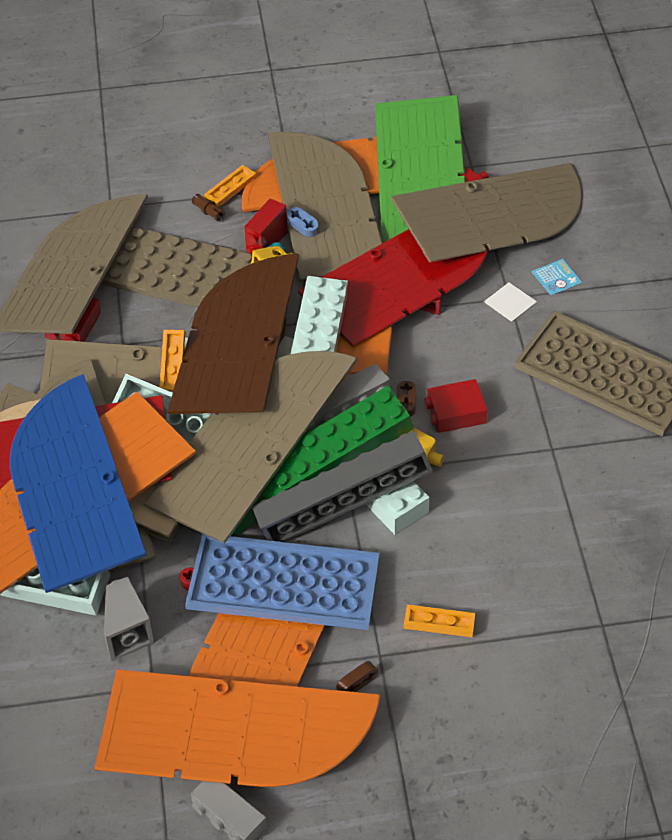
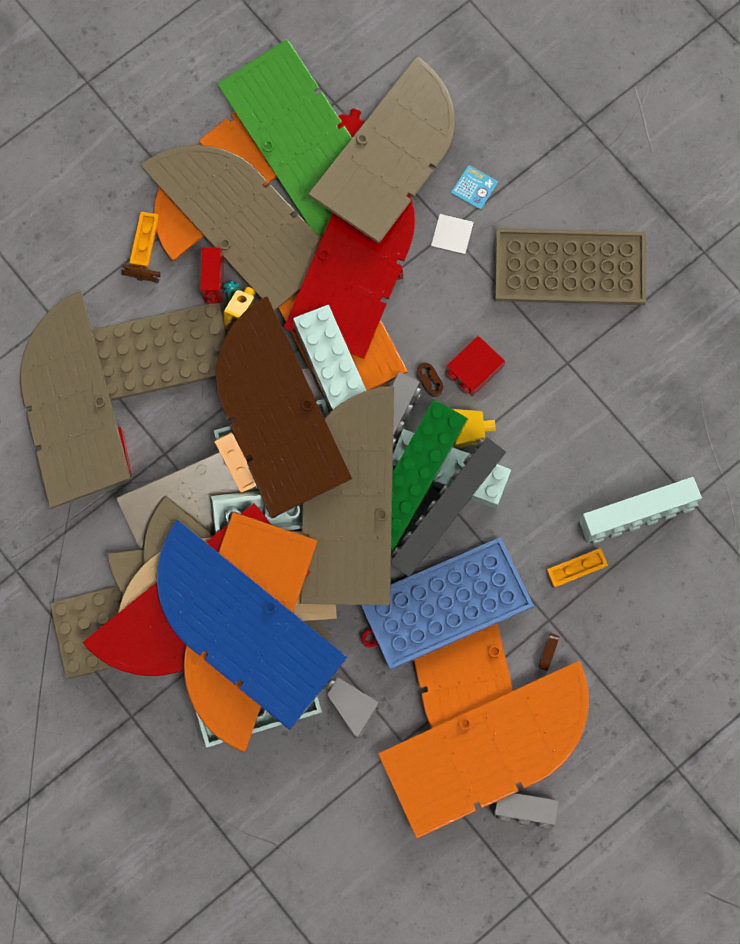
camera: 30 degrees left, 25 degrees up
(303, 221) = (239, 246): medium blue beam -> none
(538, 596) = (640, 510): none -> light aqua brick

